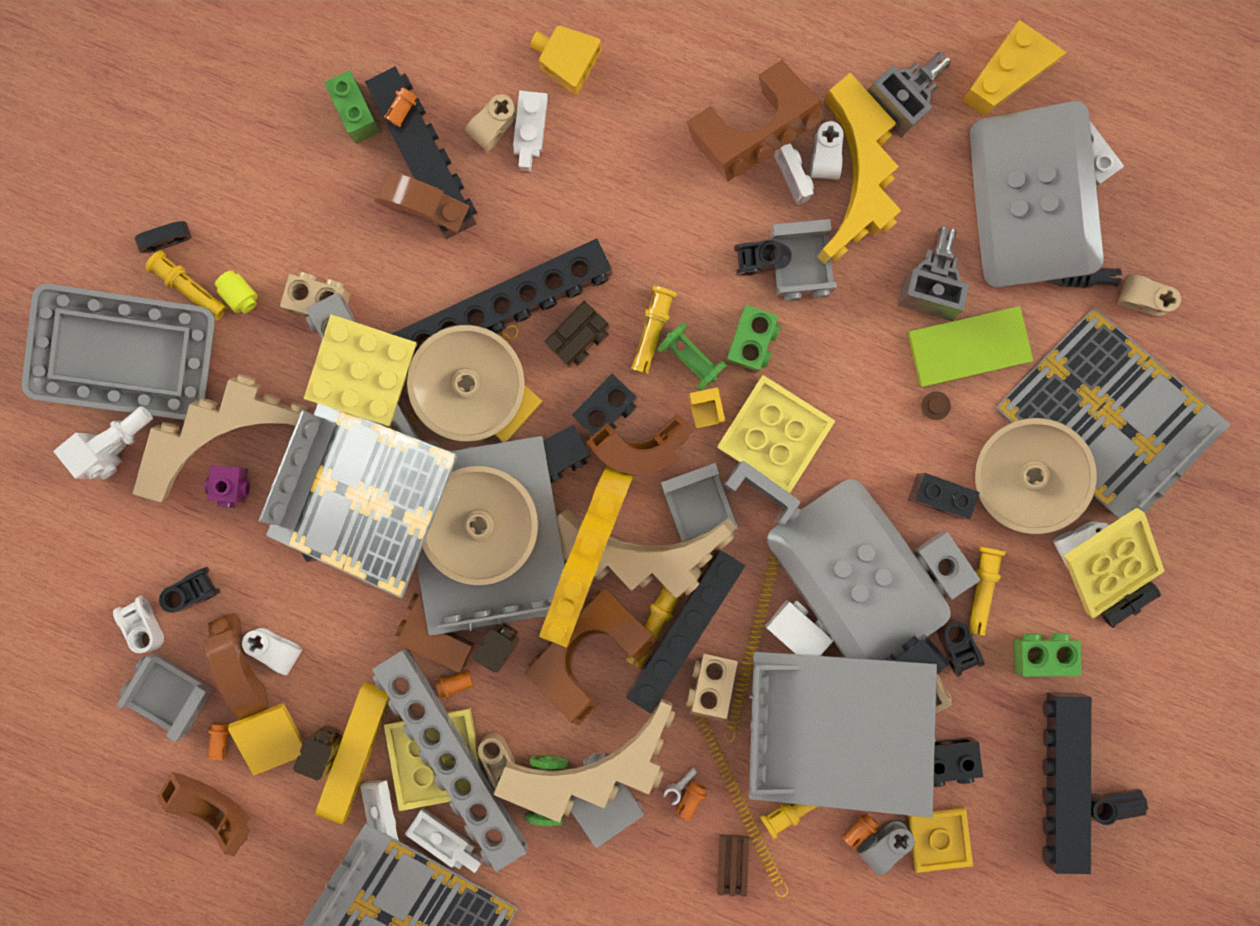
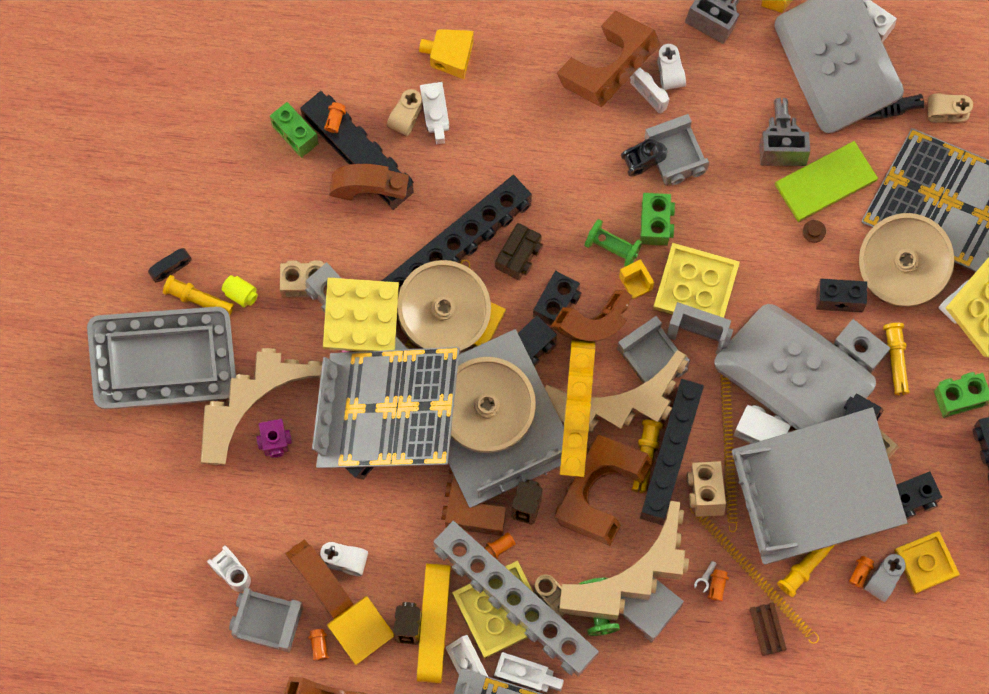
camera: 20 degrees left, 15 degrees down
(97, 454) = (161, 440): white brick -> none
(193, 590) = (268, 527): black piece -> none
(656, 316) = (576, 222): yellow pin -> none
(865, 130) = (696, 47): yellow arch -> none
(962, 651) = (893, 407): black piece -> none

